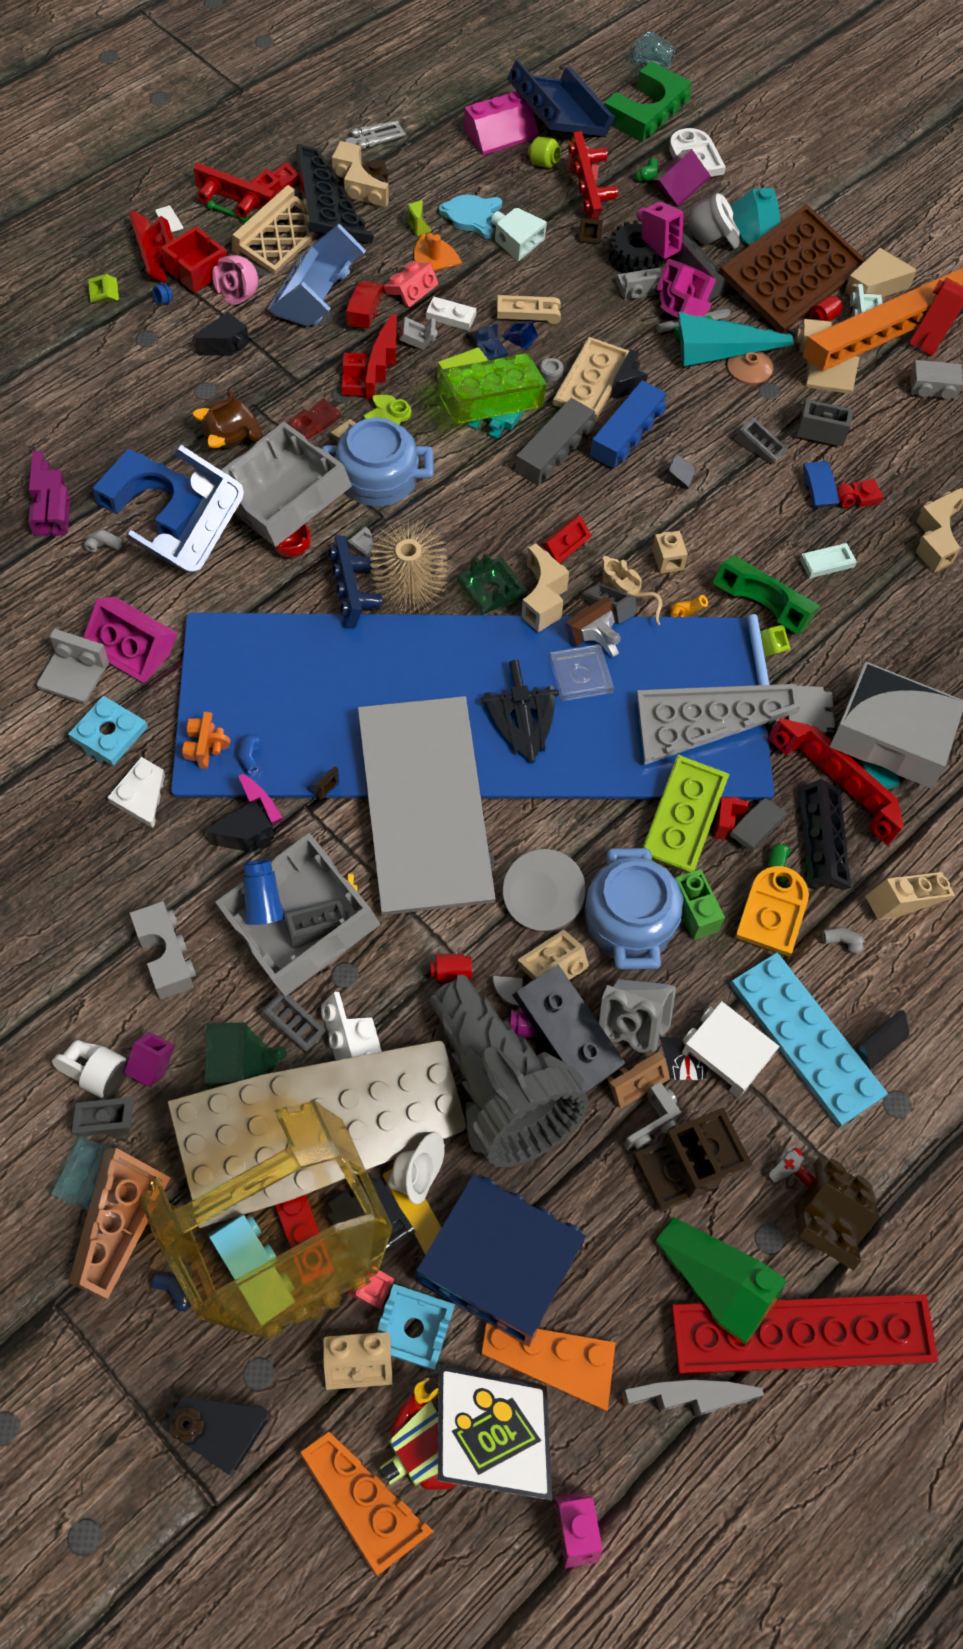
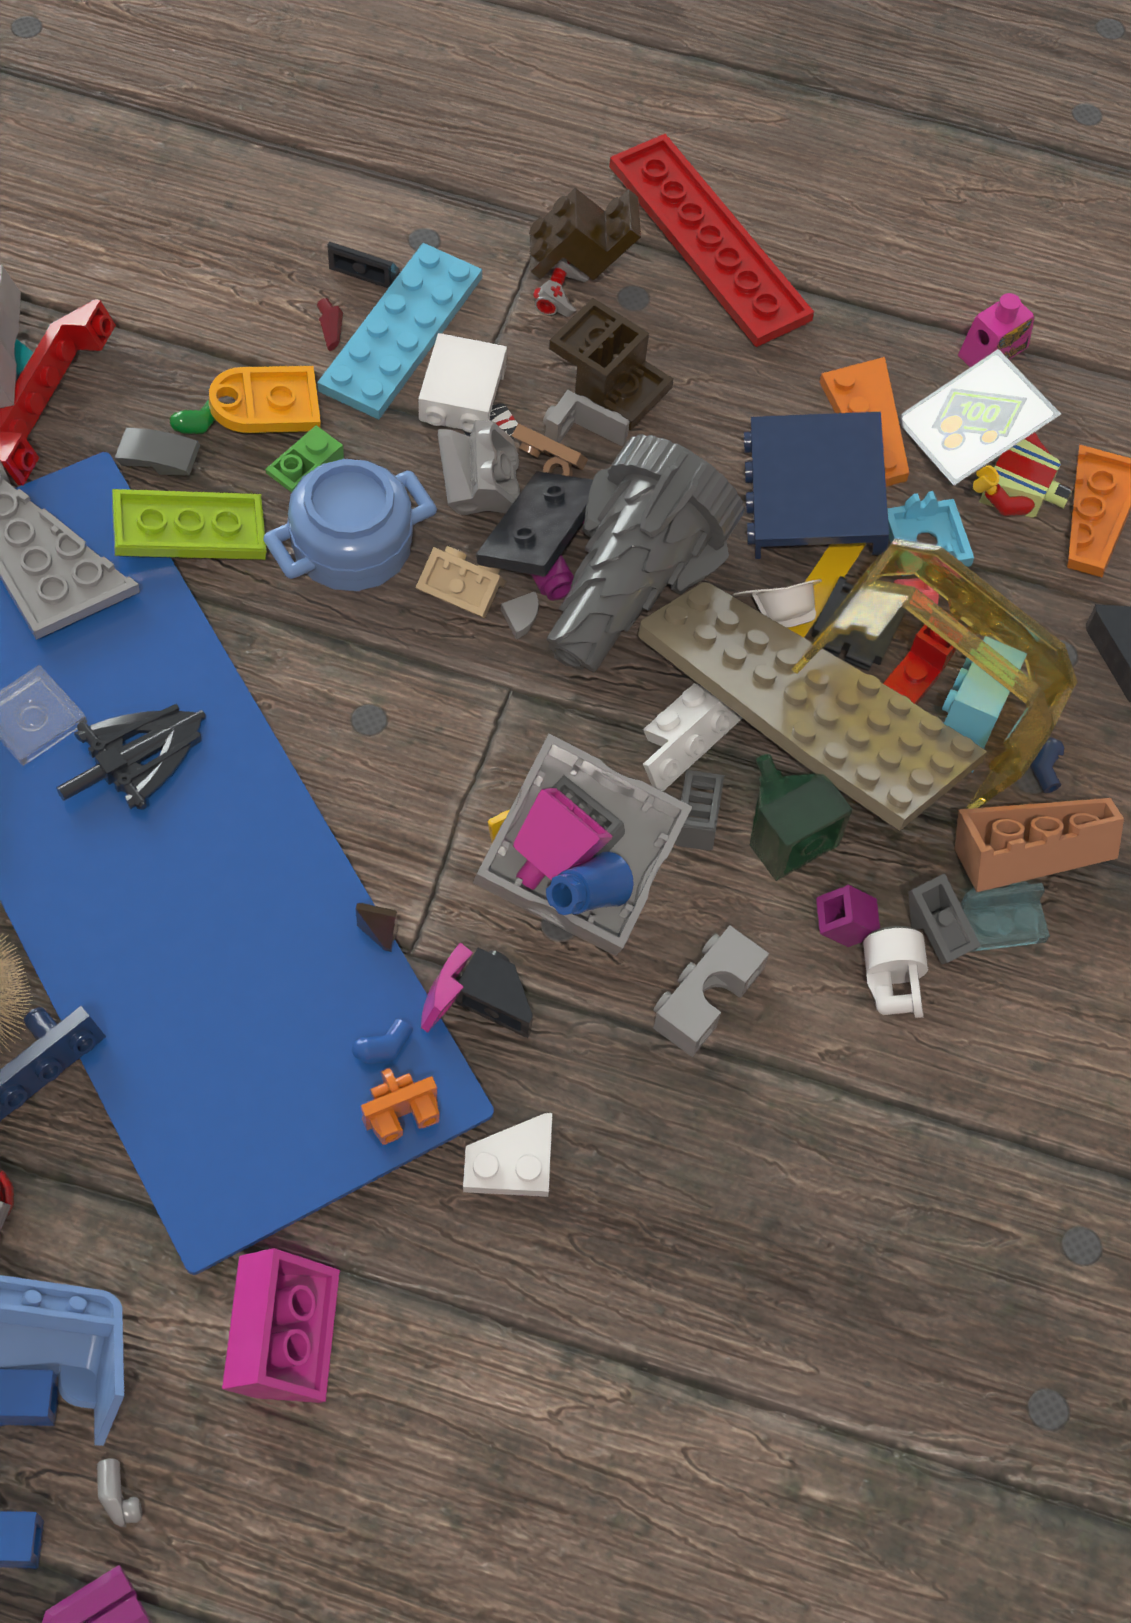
camera: 120 degrees left, 0 degrees up
(74, 667) = (380, 1373): light grey bracket -> none
(109, 746) = (434, 1270): medium azure piece -> none
(303, 891) = (556, 838): none -> dark pink torso
(357, 1360) = (991, 561): tan bracket -> none
(425, 806) = (333, 800): light grey tile -> none
(448, 966) = (535, 674): red brick -> none
(544, 890) = (379, 623): light grey piece -> none
(702, 1394) = (831, 307): light grey slope -> none
(726, 813) = (169, 480): red bracket -> none
(727, 1280) = (711, 294): green wedge -> none
(821, 835) = (135, 389): black fence -> none
(833, 990) = (331, 322): none -> dark red bar
(853, 939) = (256, 331): light grey arm -> none
(908, 894) = (172, 287): tan slope -> none

